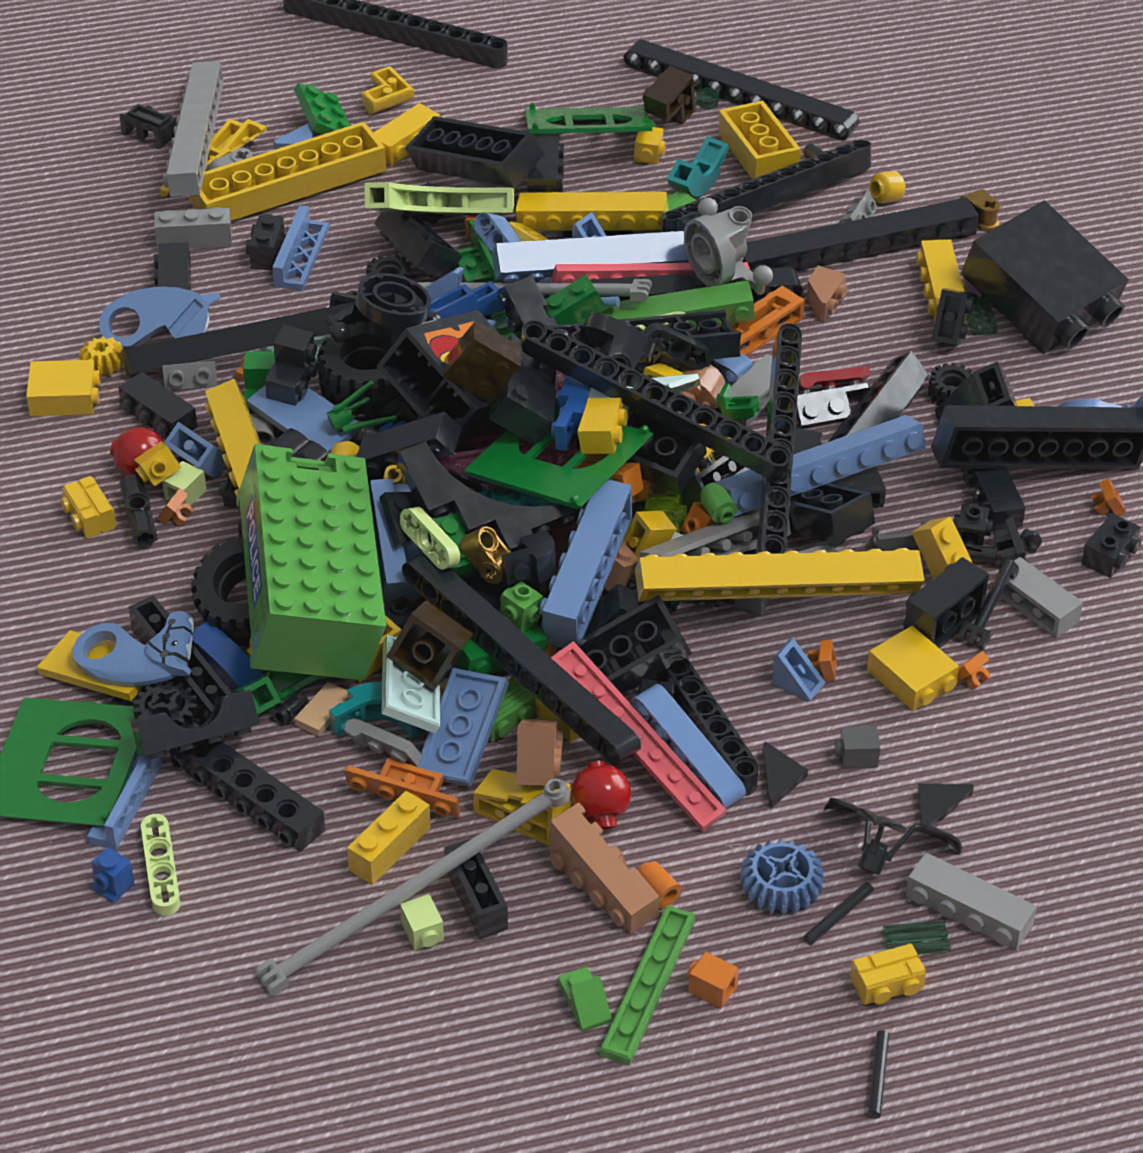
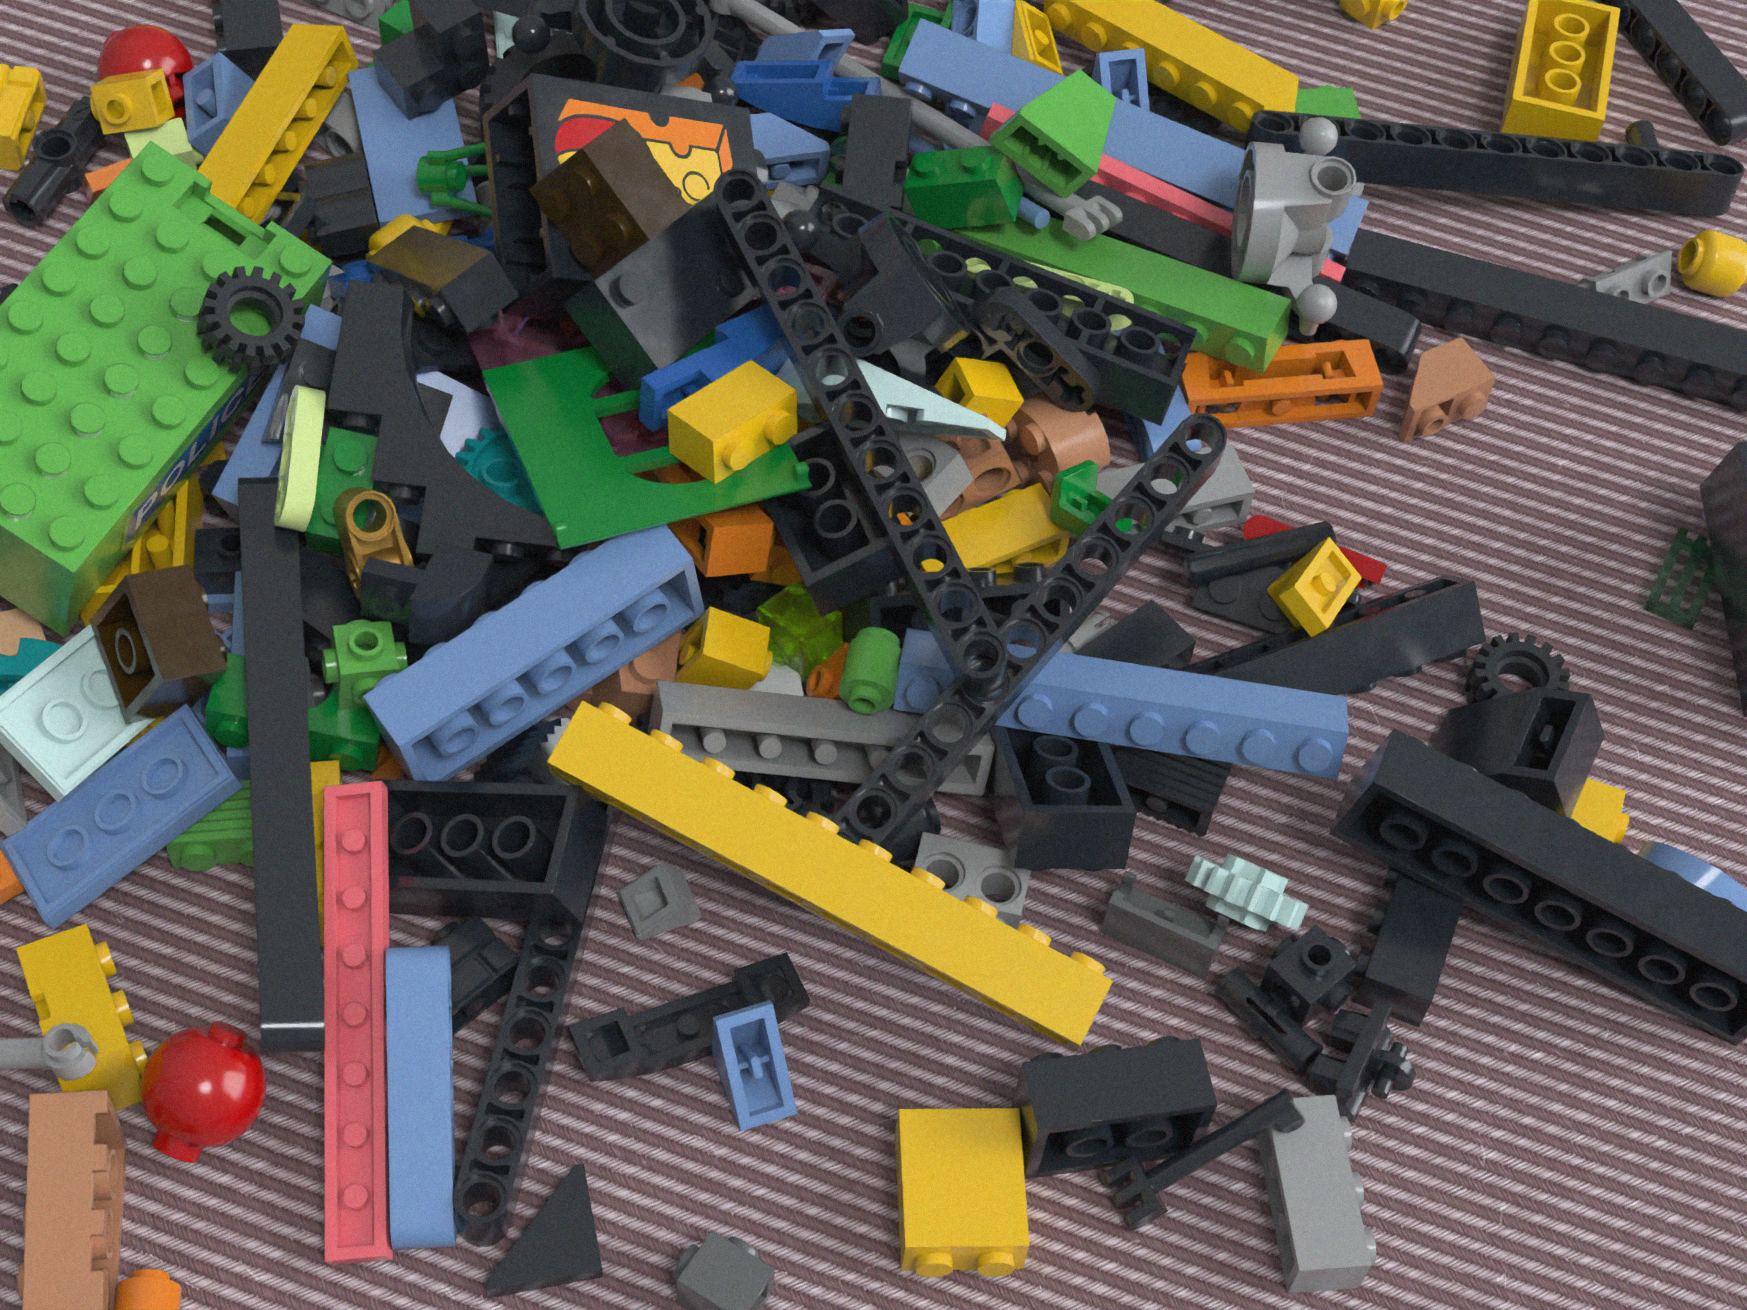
camera: 30 degrees right, 10 degrees up
(372, 482) = (263, 295): none -> black tyre
(538, 751) = (149, 940): nougat wedge -> none
(604, 259) = (1060, 133): none -> bright green slope
(701, 643) = (659, 901): none -> light grey slope
(703, 172) = (1414, 81): teal arch -> none
(757, 675) = (681, 1030): none -> black slope
(819, 384) = (1255, 552): none -> black axle
(824, 660) = (825, 1075): orange tile -> none
(851, 388) = (1315, 587): none -> yellow slope
(925, 507) = (1246, 892): none -> light aqua gear
(937, 271) = (1664, 484): yellow brick -> none
(940, 544) = (1205, 988): yellow brick -> none
(951, 315) = (1612, 556): black brick -> none
(972, 668) = (1063, 1256): orange tile -> none
(1108, 498) = (1623, 1076): orange tile -> none
(1111, 545) = (1541, 1175): black brick -> none

